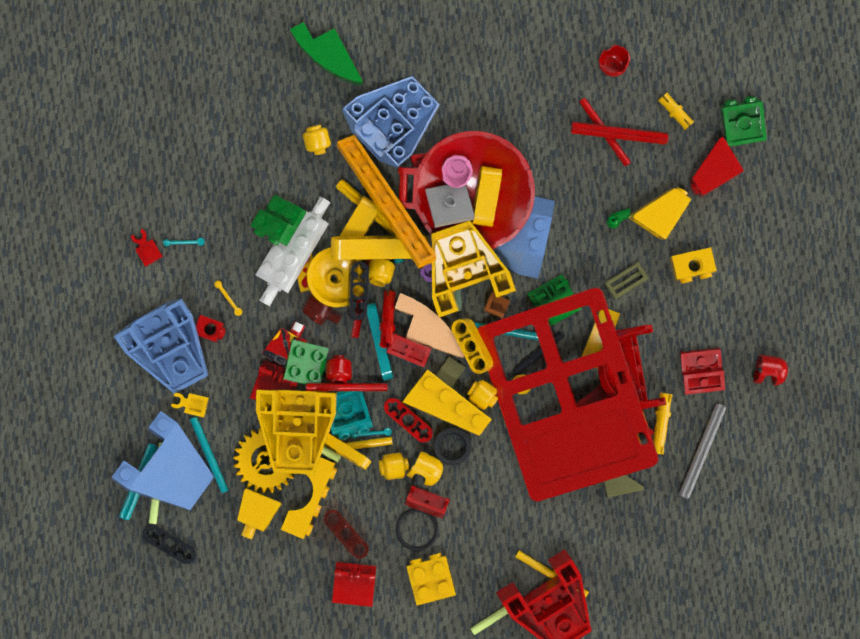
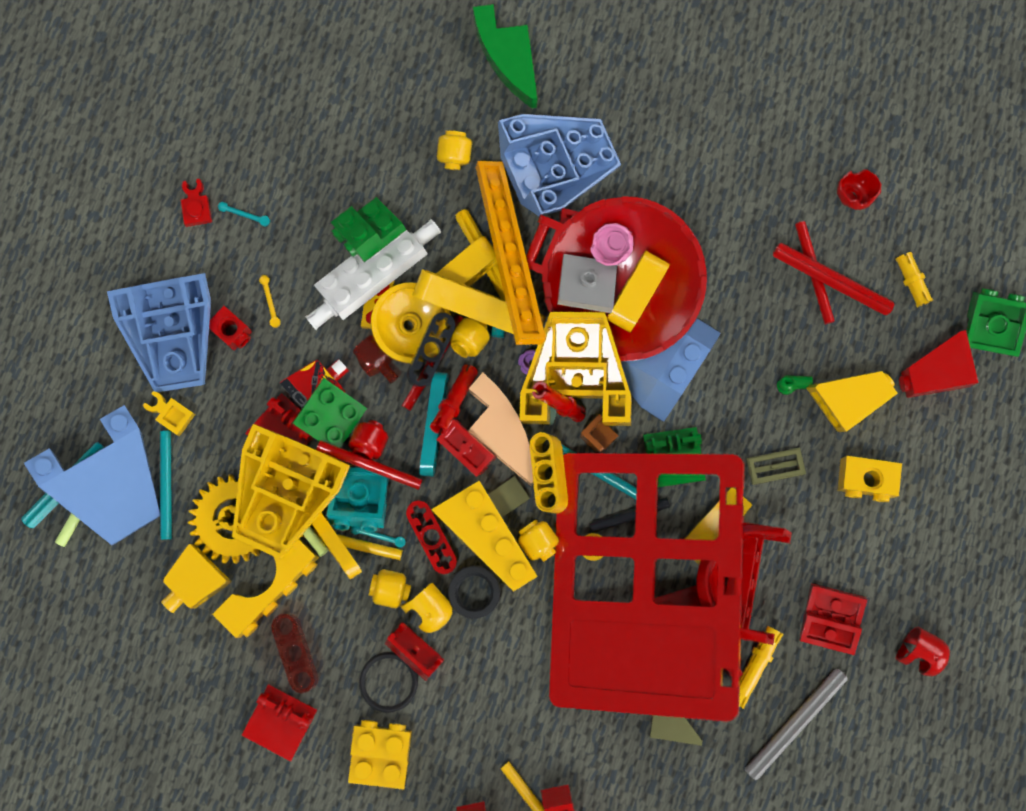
camera: 25 degrees right, 5 degrees down
(153, 541) = (57, 578): black beam -> none
(462, 294) = (564, 405): none -> red pin

